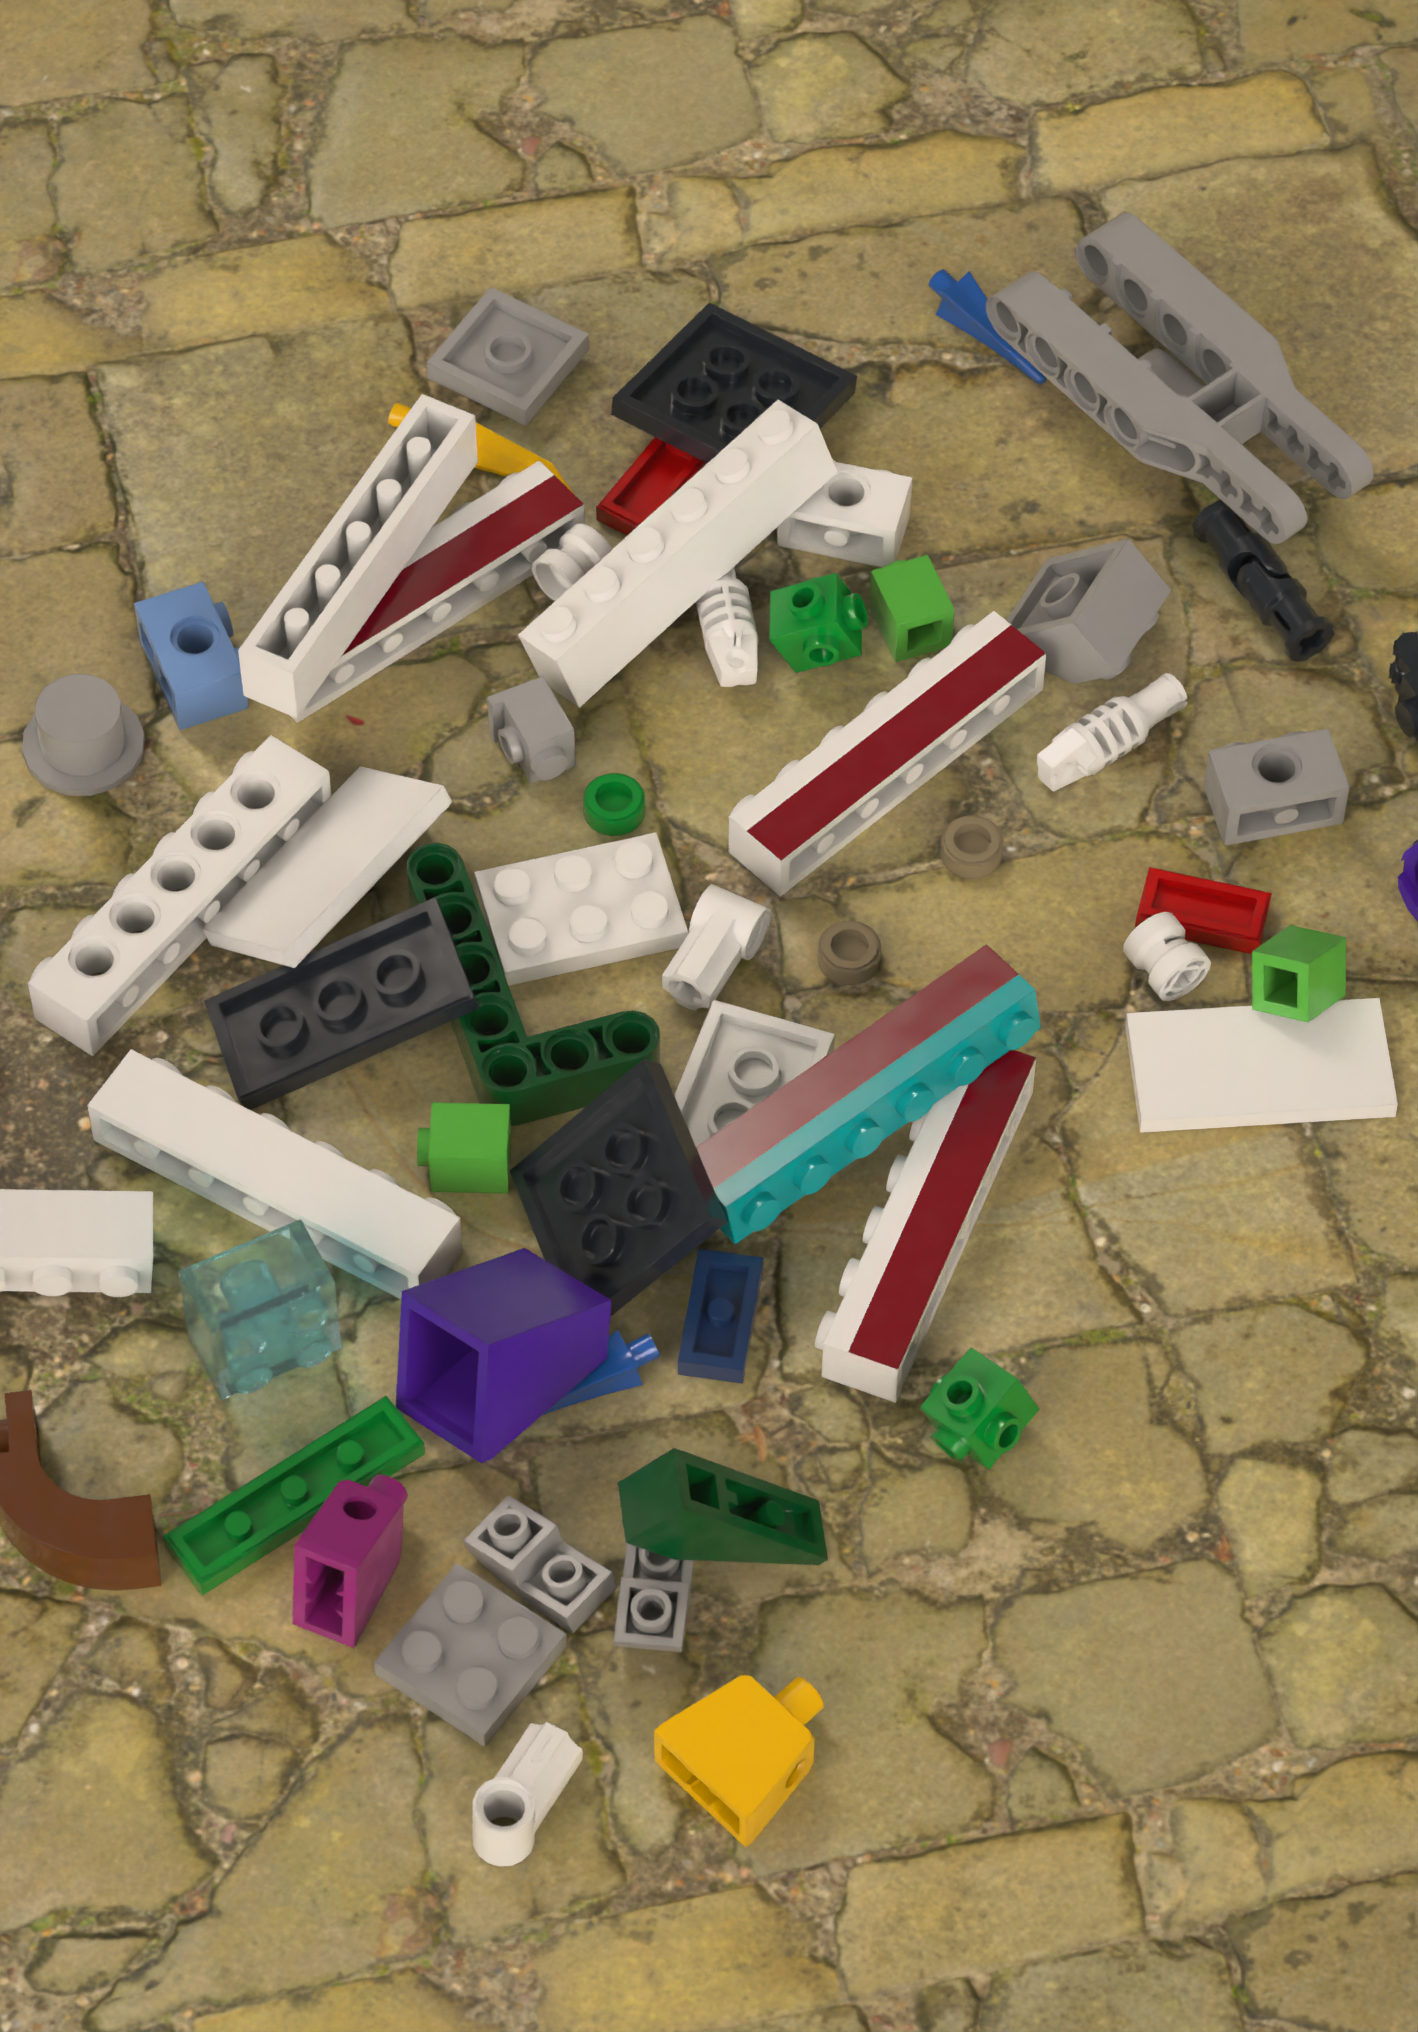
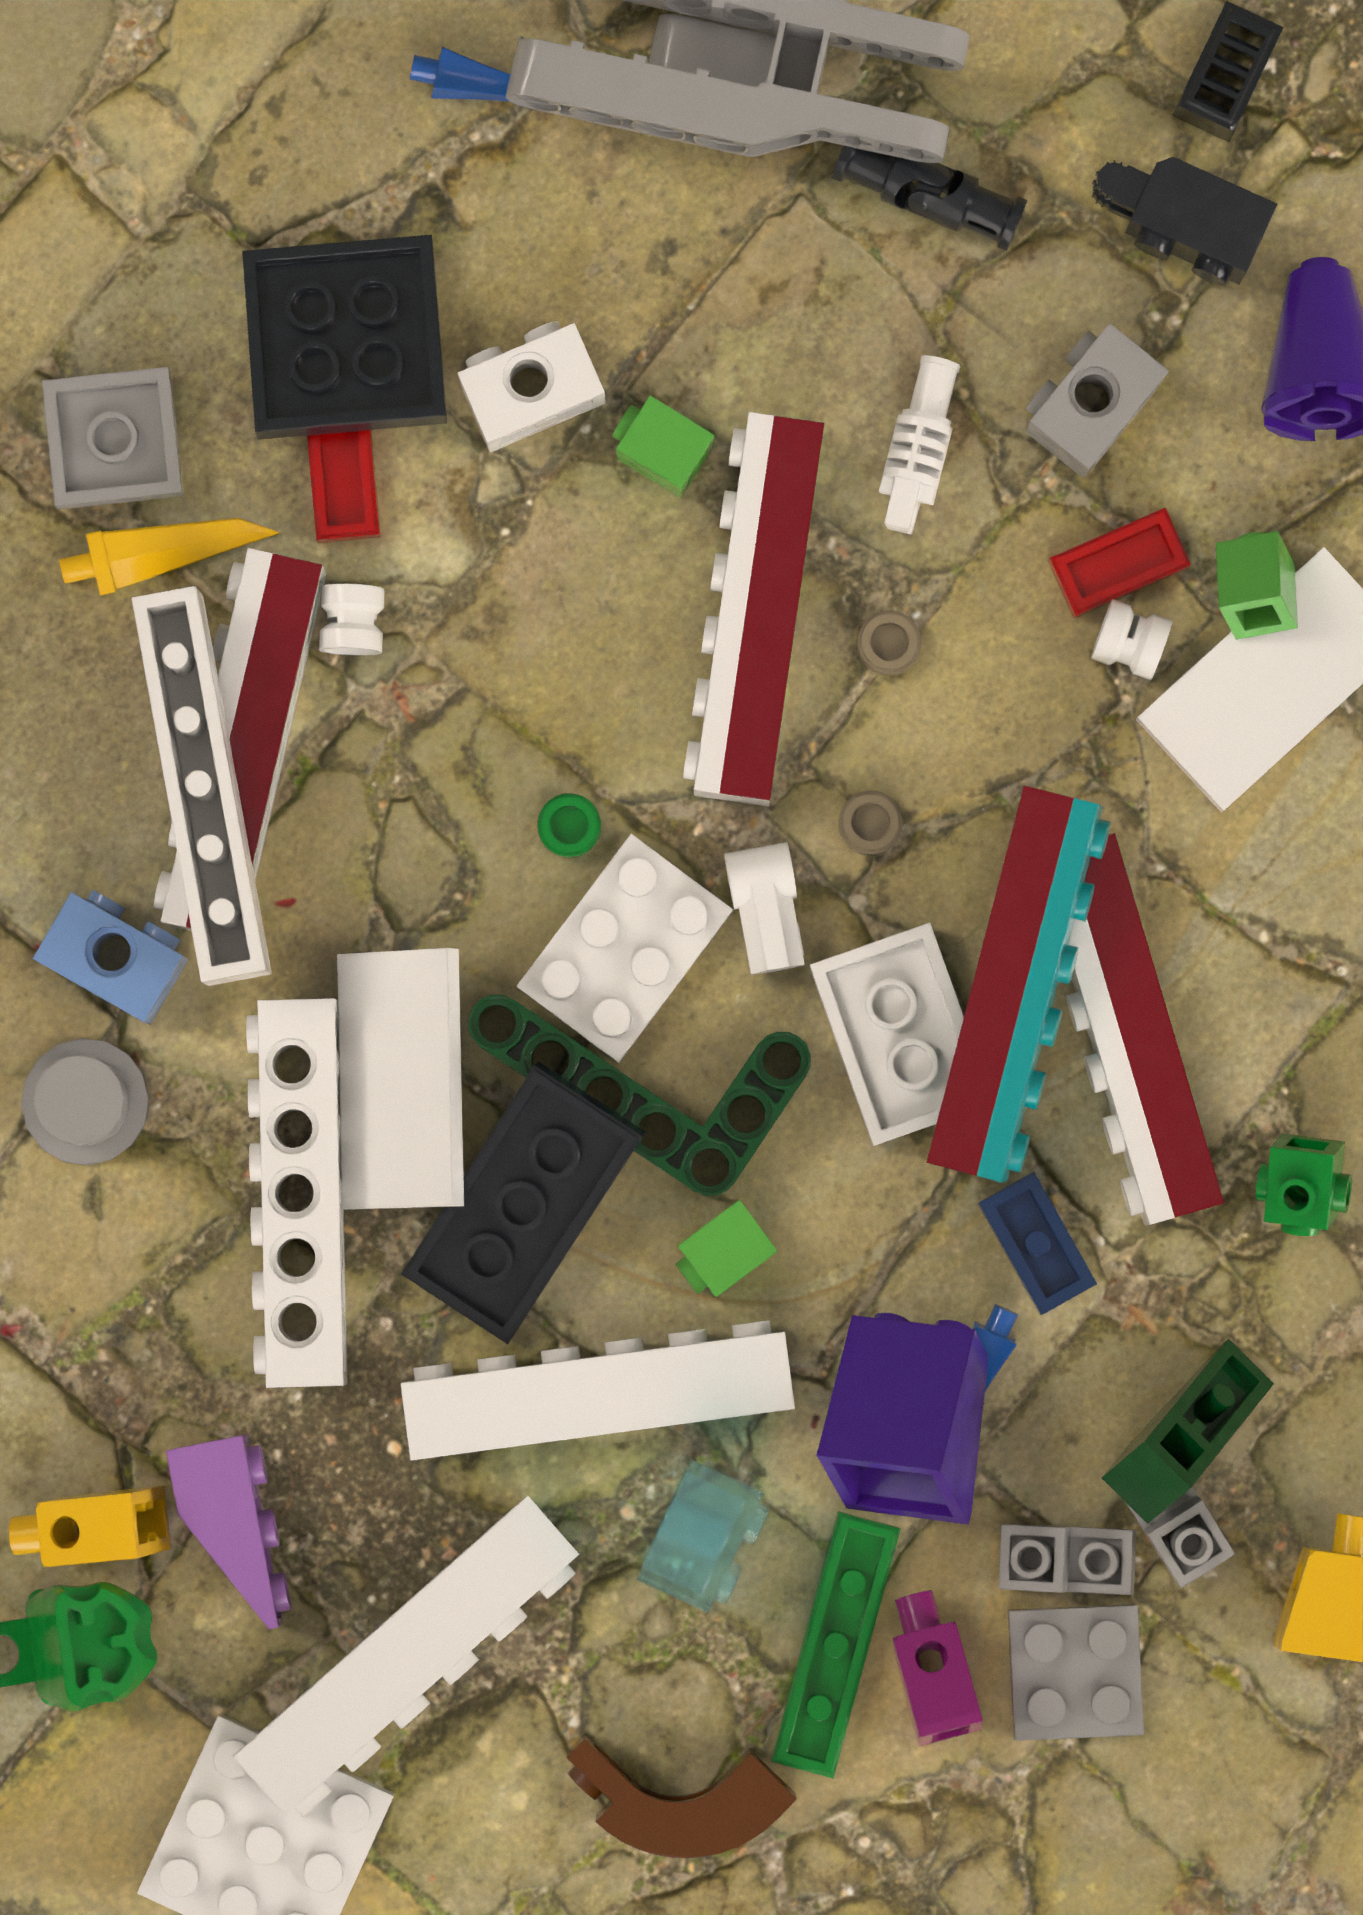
camera: 40 degrees left, 30 degrees up
(523, 1791) = (1209, 1753): white piece -> none
(532, 729) = (456, 815): light grey brick -> none
(620, 1189) = (895, 1219): black plate -> none
(678, 553) = (448, 560): white brick -> none
(729, 631) = (517, 572): white hinge -> none
(817, 622) = (606, 528): green brick -> none
(1090, 610) = (809, 342): light grey slope -> none

